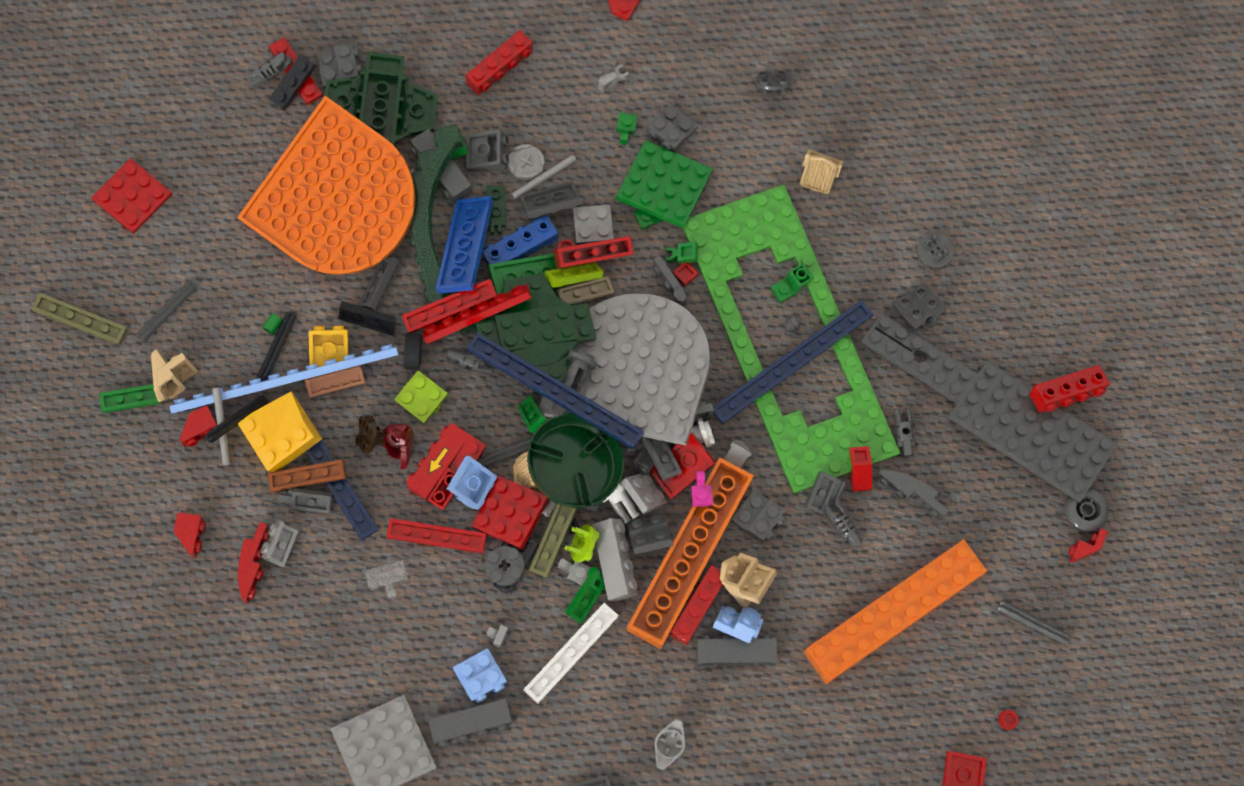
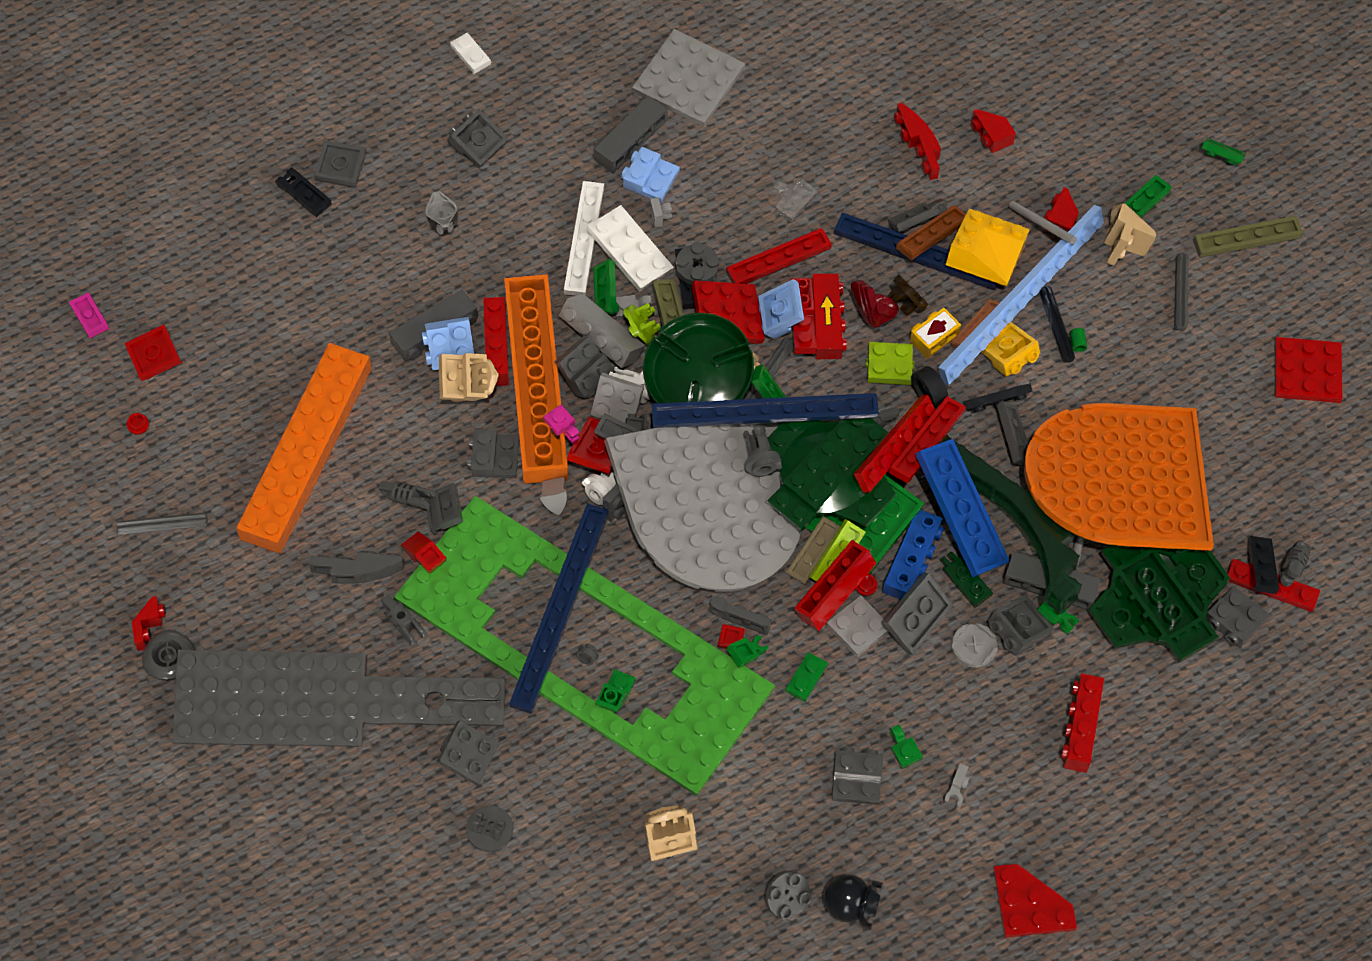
camera: 150 degrees right, 10 degrees down
(32, 397) = (1216, 148): none -> green plate
(233, 420) = (1034, 233): black axle -> none
(279, 543) = (908, 166): light grey bracket -> none
(371, 396) = (935, 332): none -> brick
(543, 618) = (630, 248): none -> white plate
(544, 176) = (945, 641): light grey bar -> none
(664, 184) = (818, 708): green plate -> none
(734, 50) = (851, 899): none -> black tile
(1069, 389) = (254, 761): red brick -> none

